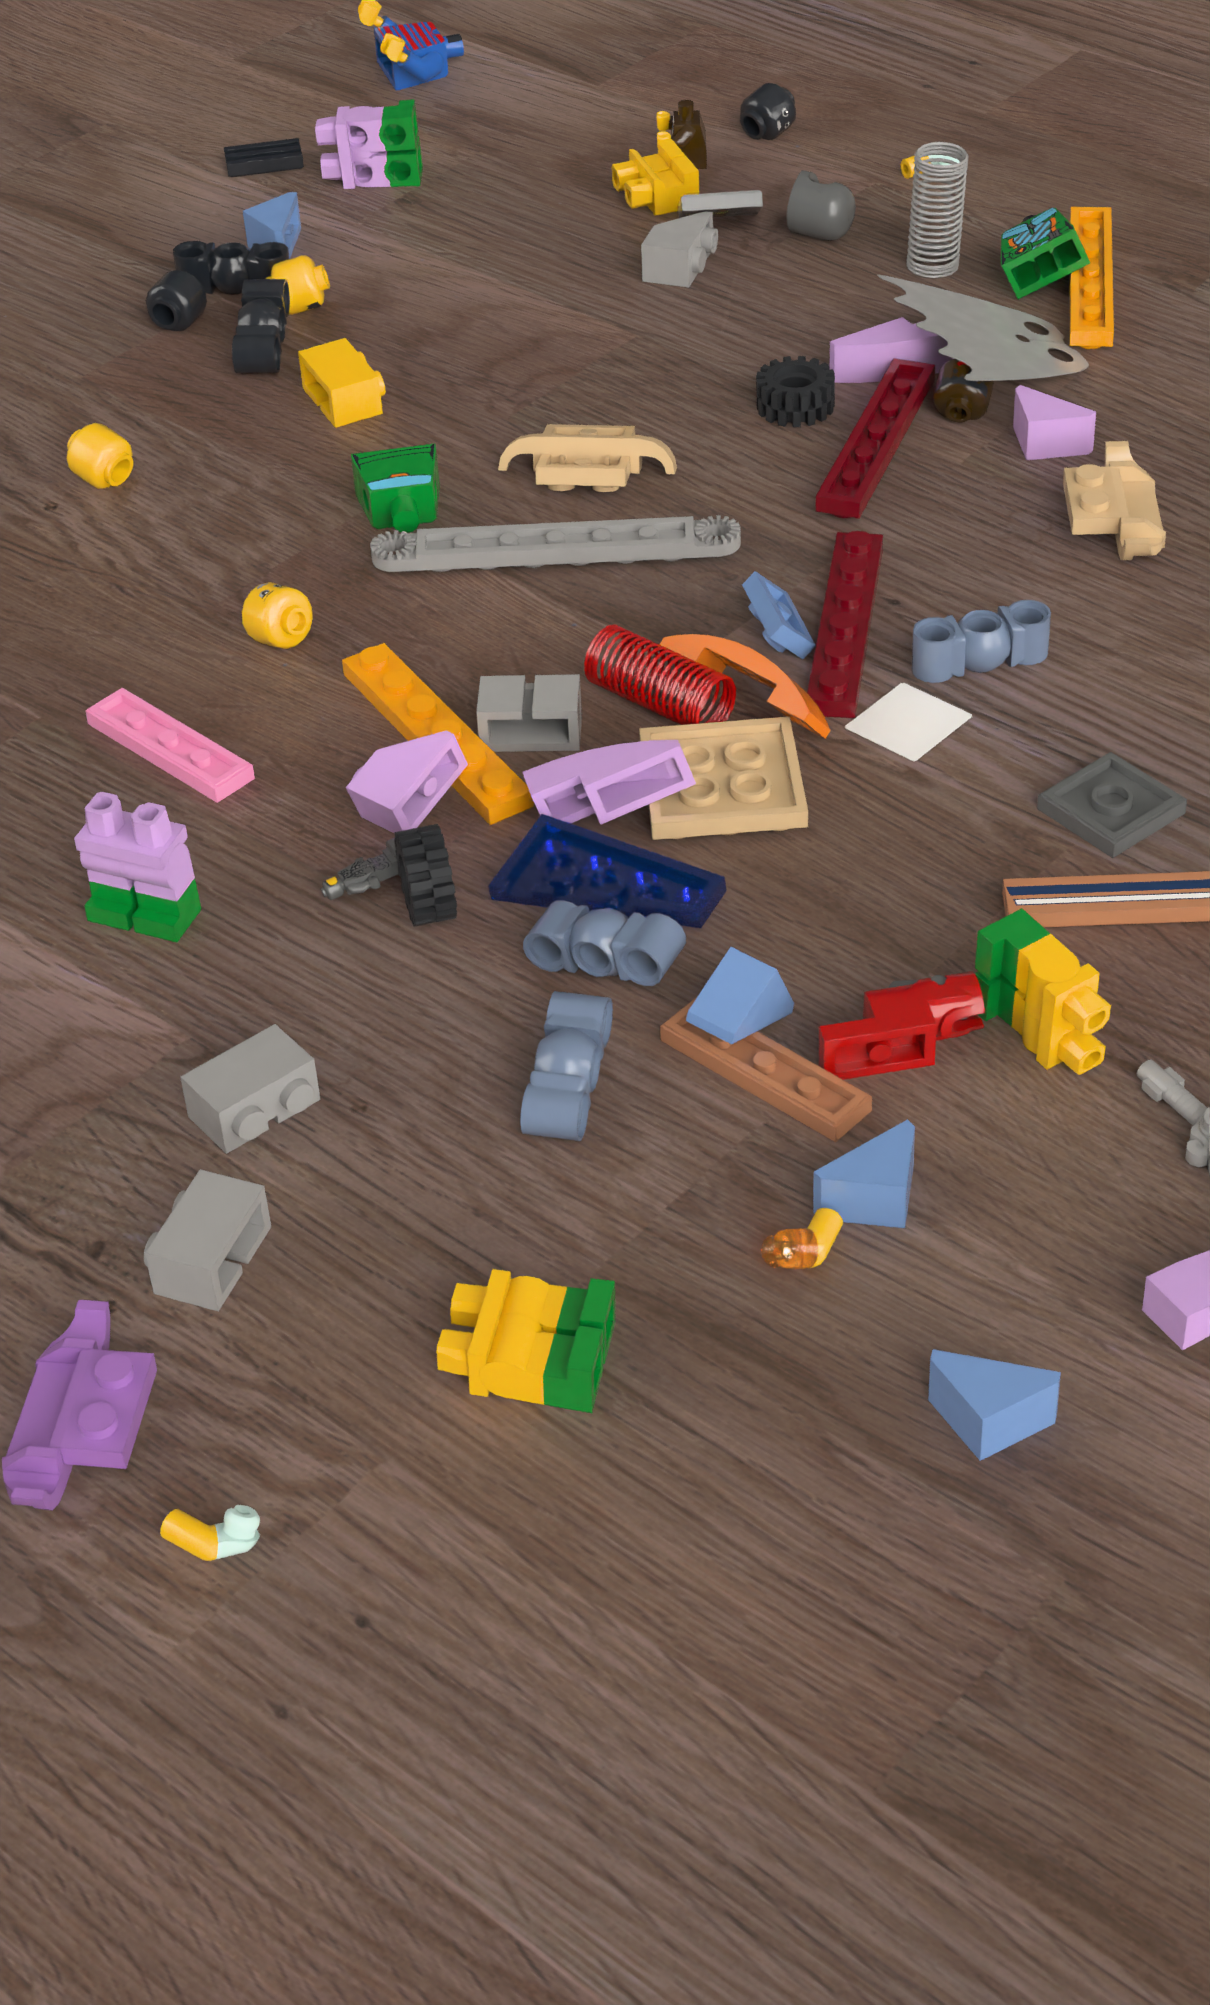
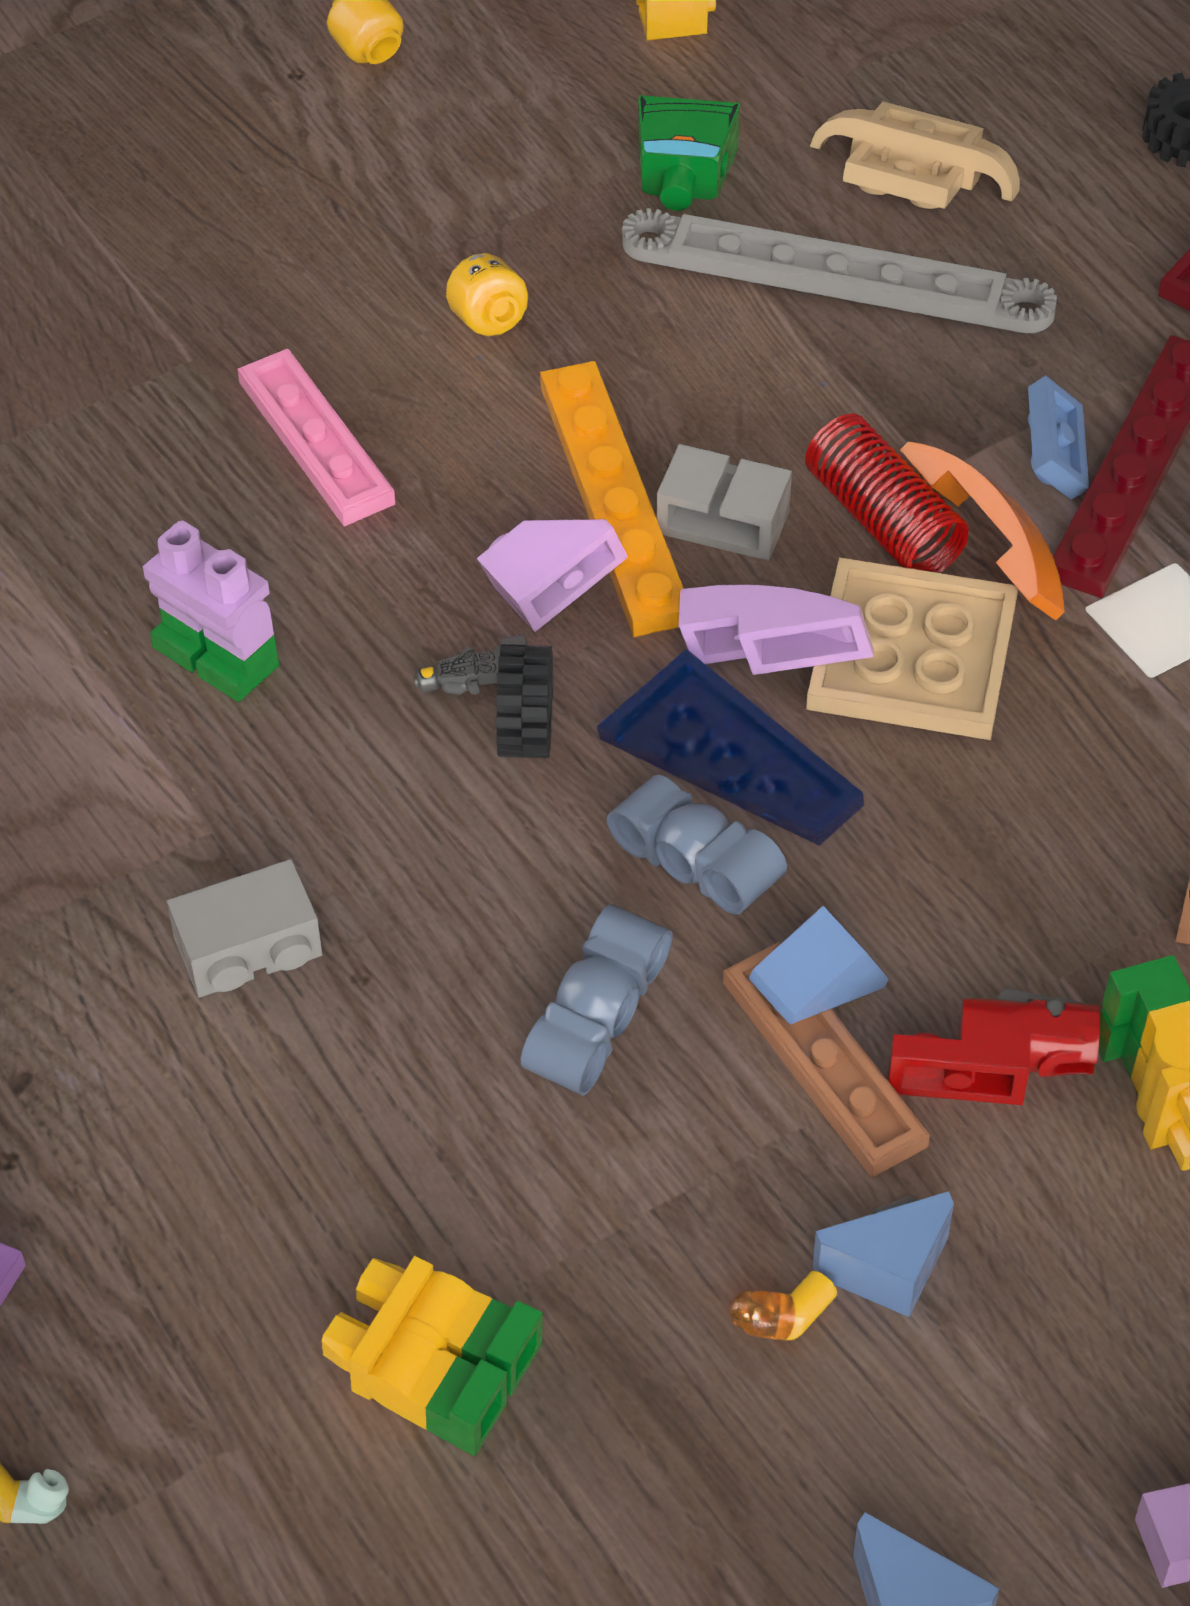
camera: 15 degrees right, 10 degrees up
(207, 1223) = (137, 1095): light grey piece -> none

